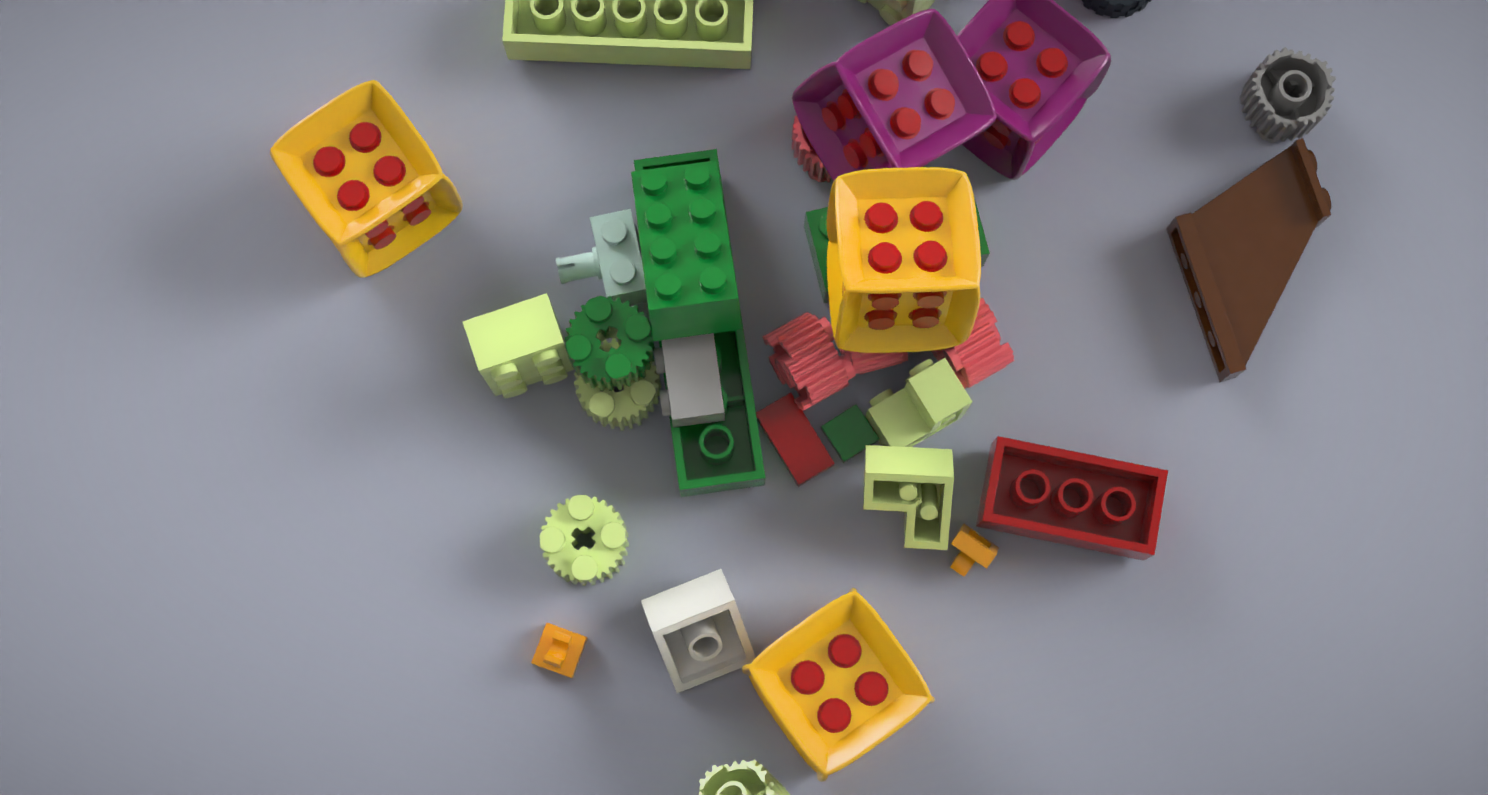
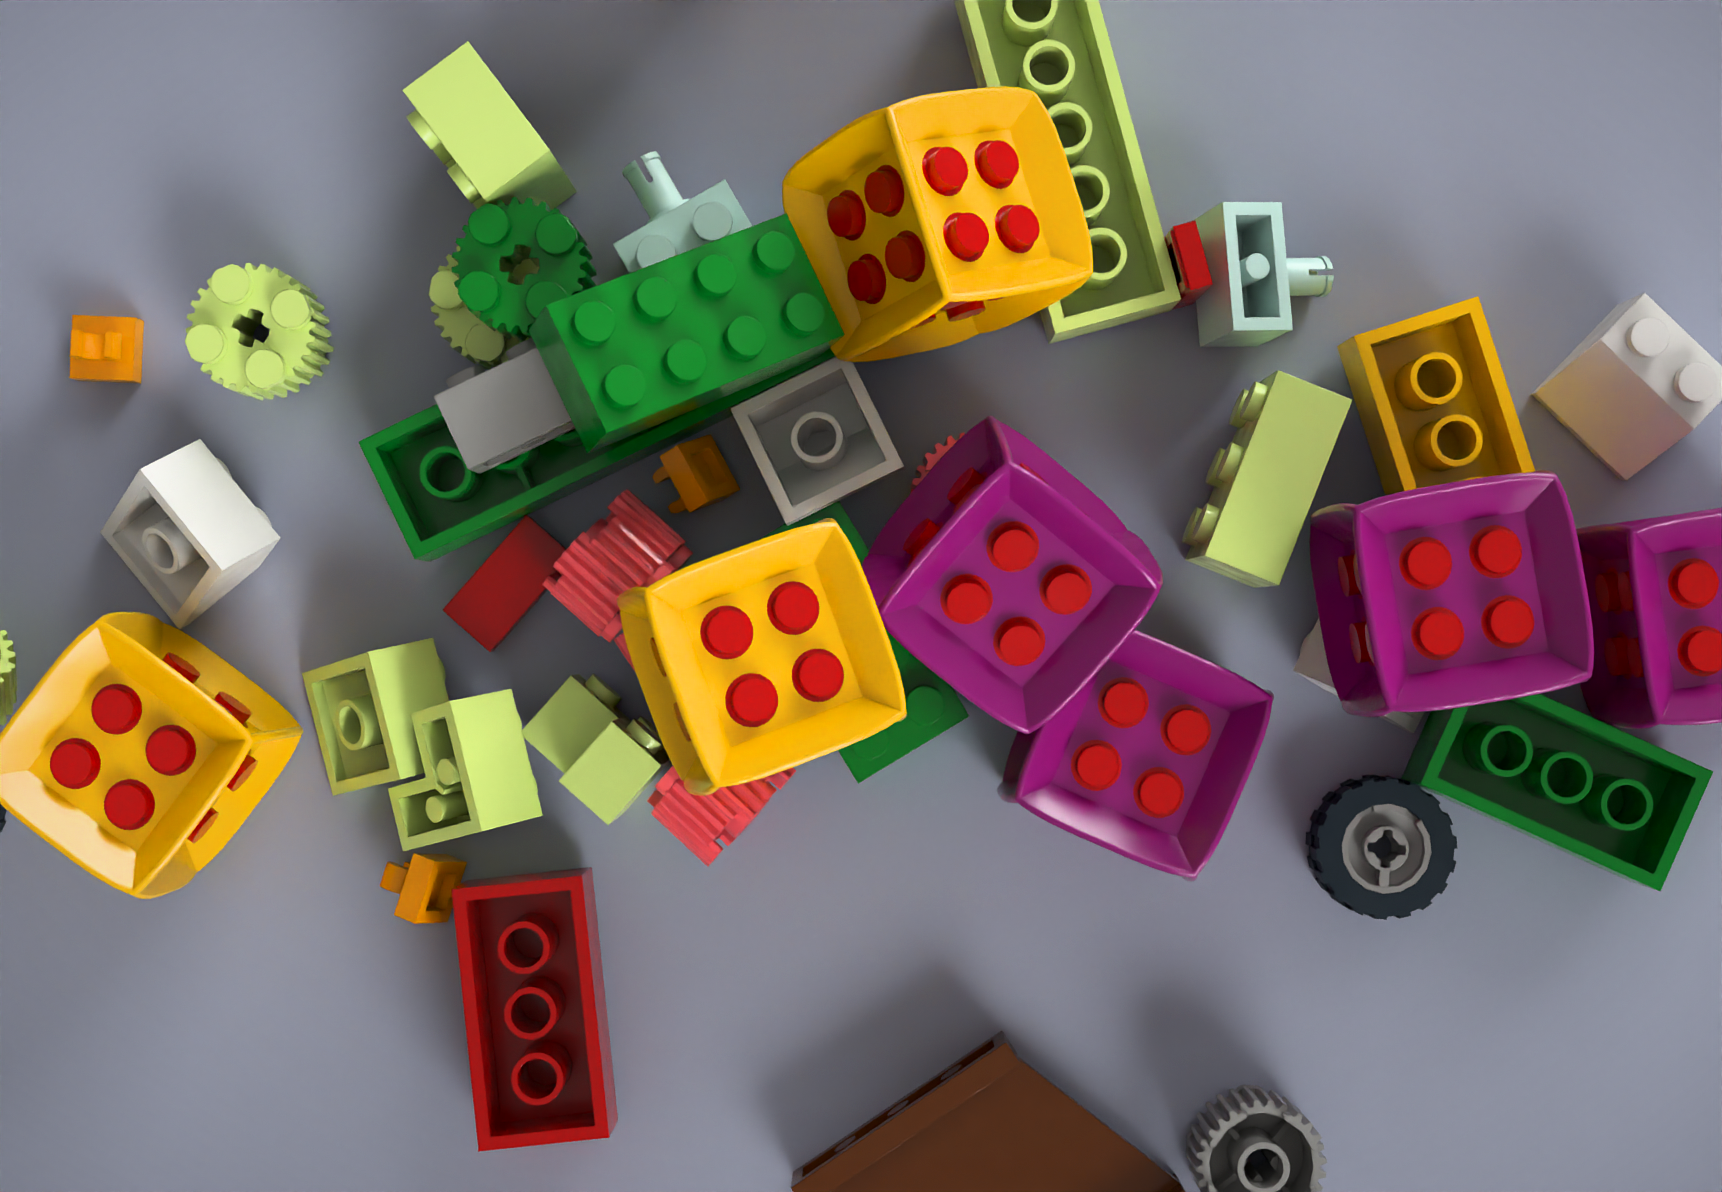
camera: 75 degrees right, 10 degrees up
(664, 86) = (939, 220): none -> yellow piece
(764, 297) = (697, 474): none -> light orange tile
(769, 213) = (817, 439): none -> white slope
(849, 433) = (542, 659): green tile -> none
(854, 546) = (366, 711): none -> yellowish green slope

